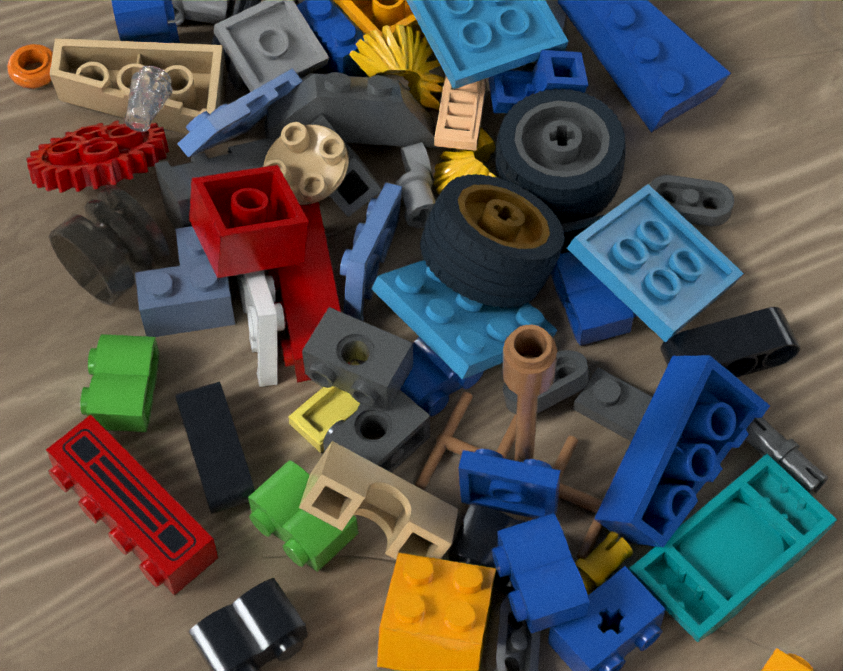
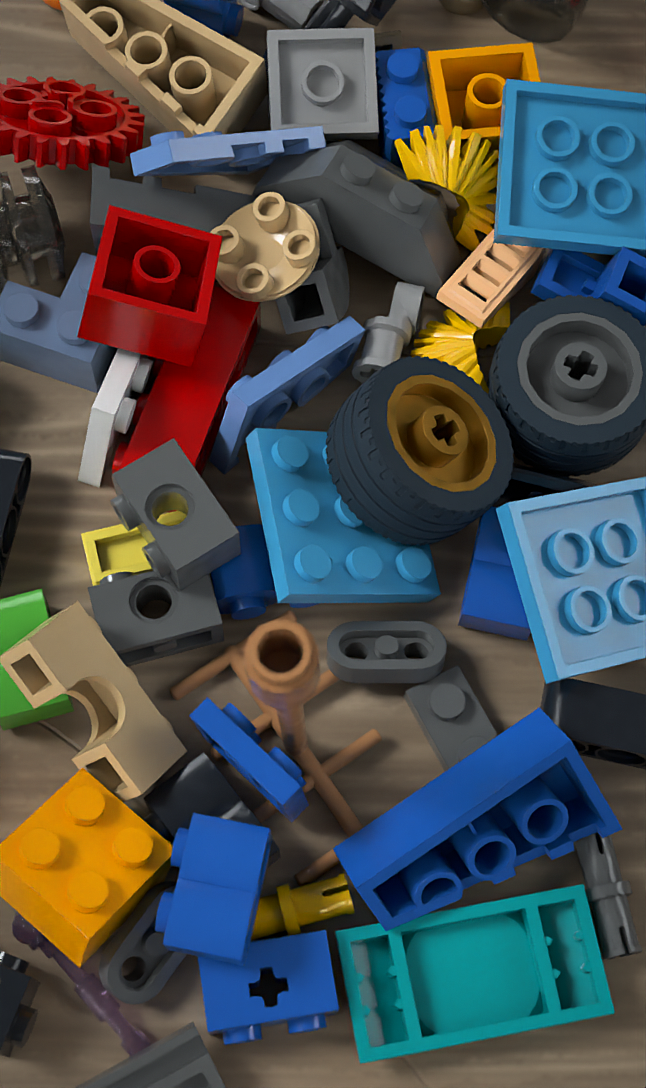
camera: 25 degrees right, 10 degrees up
(147, 95) = (139, 79): clear cone -> none

